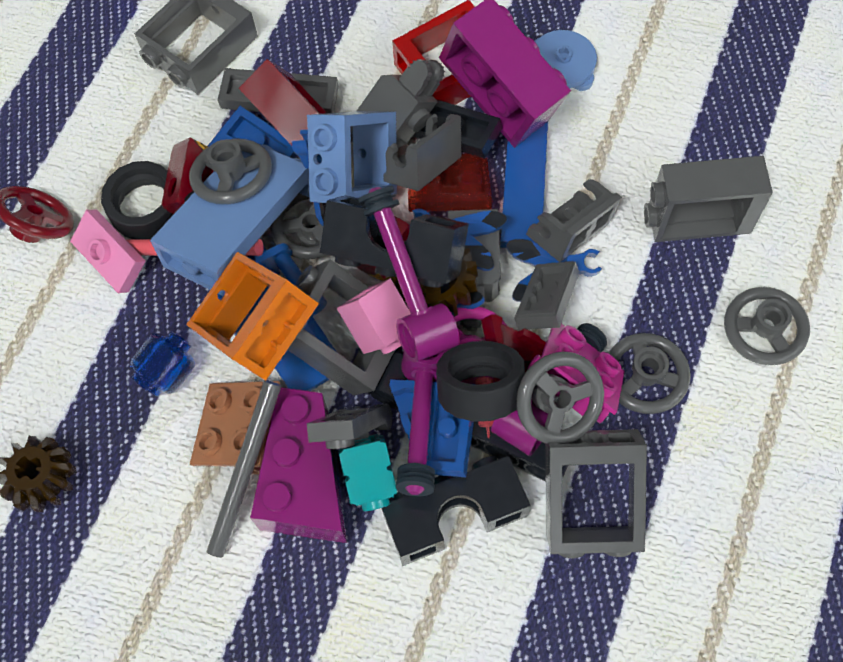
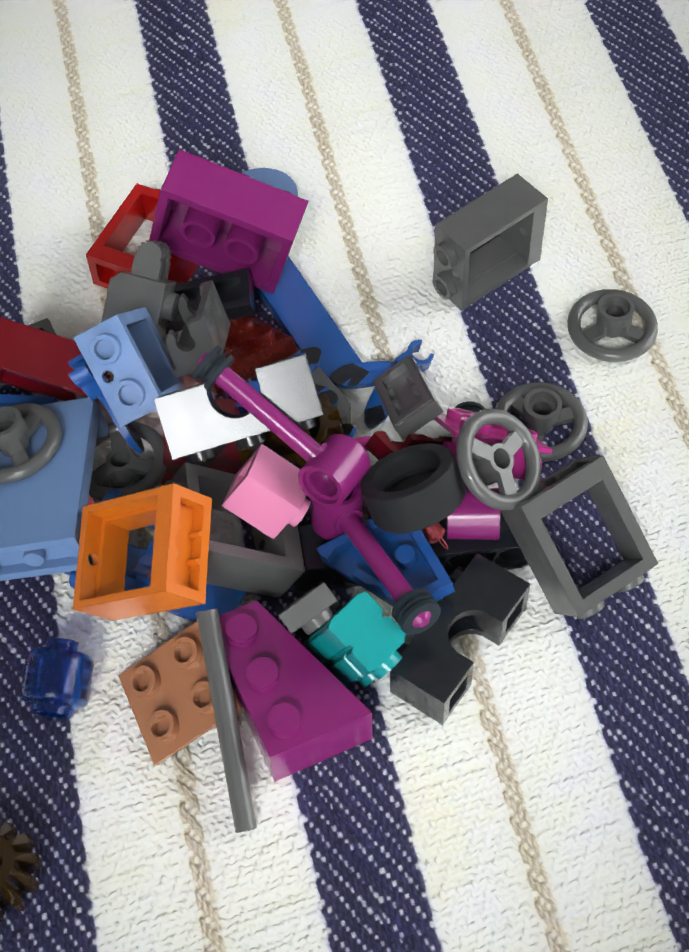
camera: 35 degrees left, 10 degrees down
(575, 221) = (380, 325): dark grey hinge -> none

